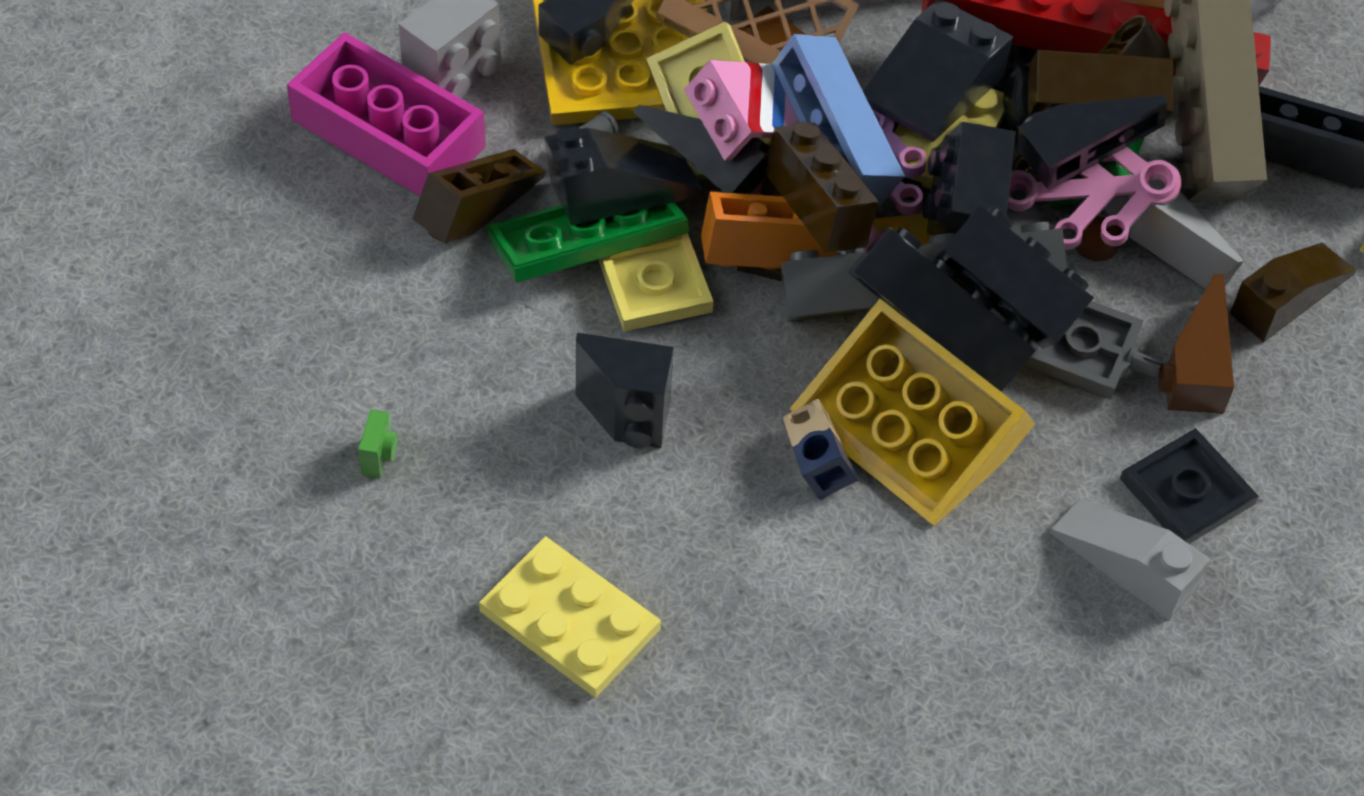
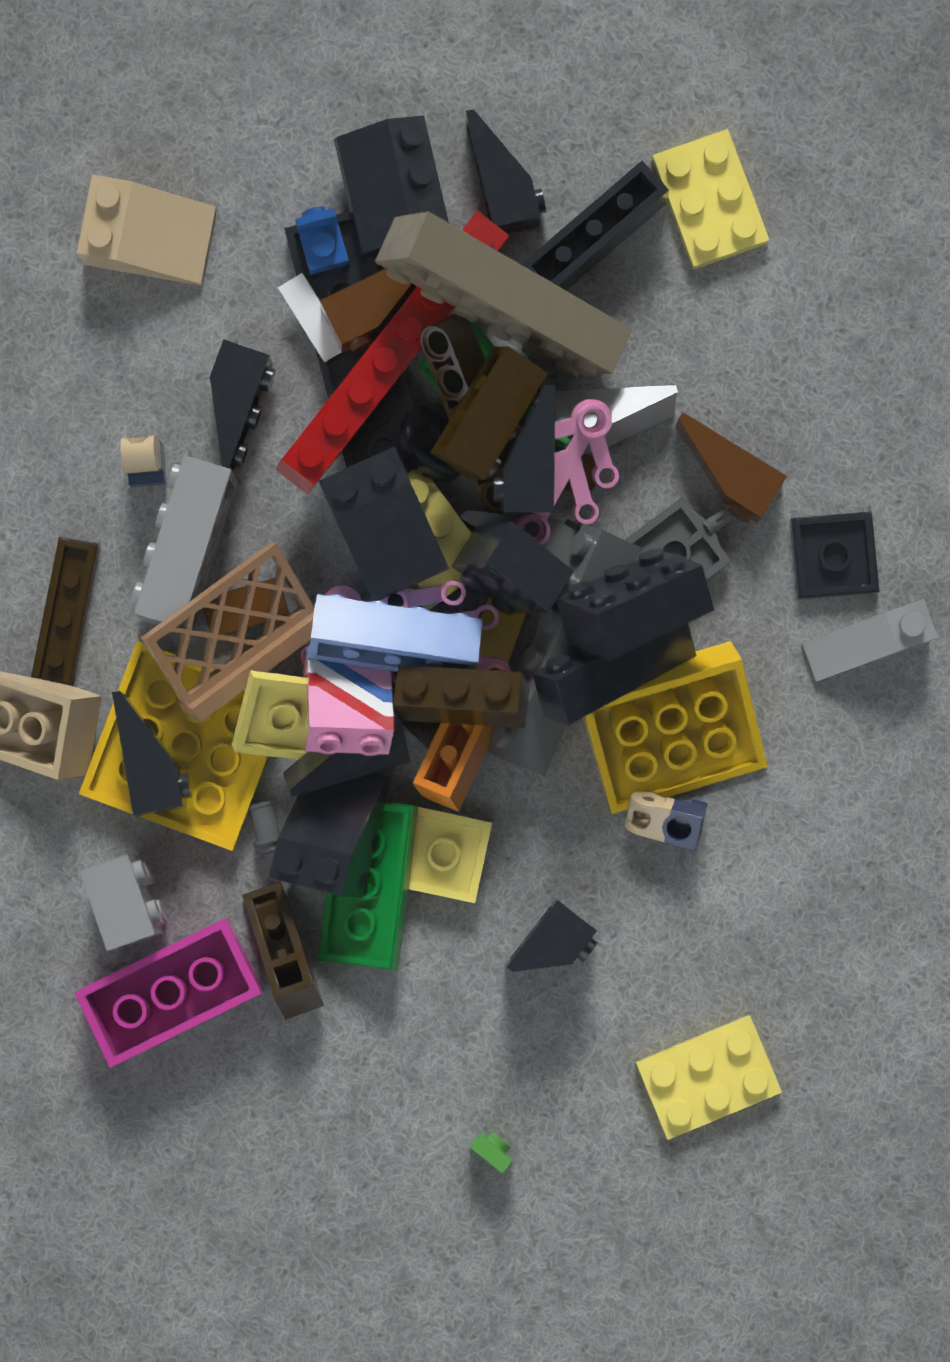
camera: 60 degrees left, 30 degrees up
(1288, 288) = (707, 352): dark brown slope -> none
(1310, 60) = (504, 182): none -> black slope

